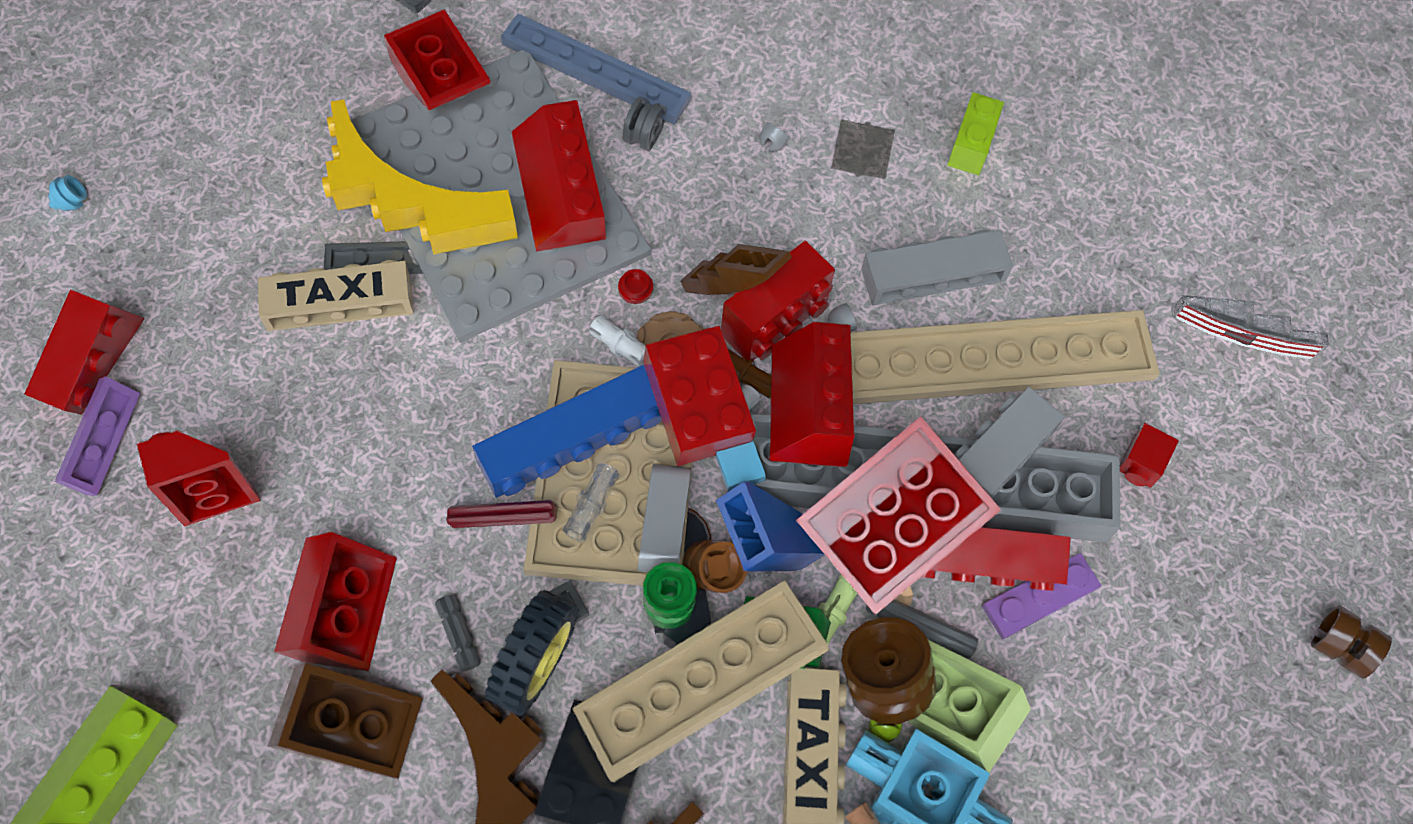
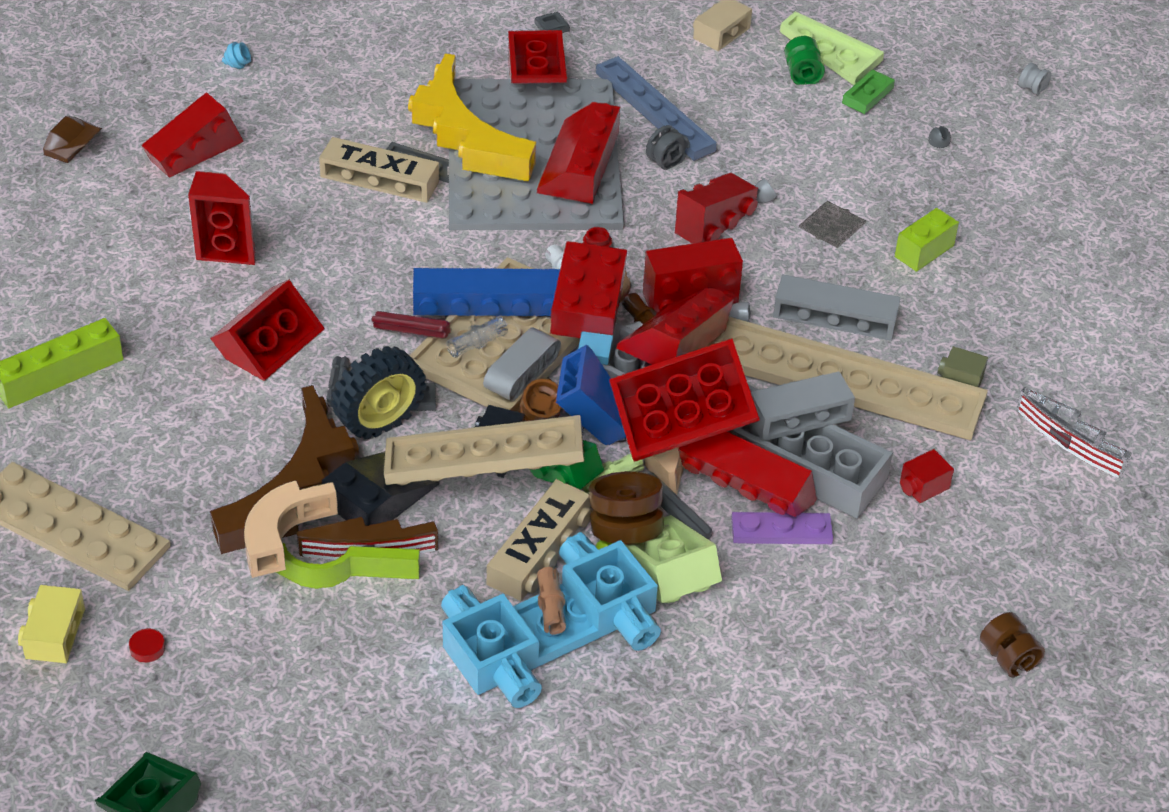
camera: 30 degrees right, 20 degrees down
(97, 437) = (168, 190): medium lavender plate -> none
(345, 721) = (230, 392): reddish brown slope -> none
(669, 595) = (492, 395): green wheel -> none
(735, 271) = (669, 235): reddish brown slope -> none
(742, 189) = (714, 208): none -> red wedge
(1105, 292) = (963, 366): none -> olive brick

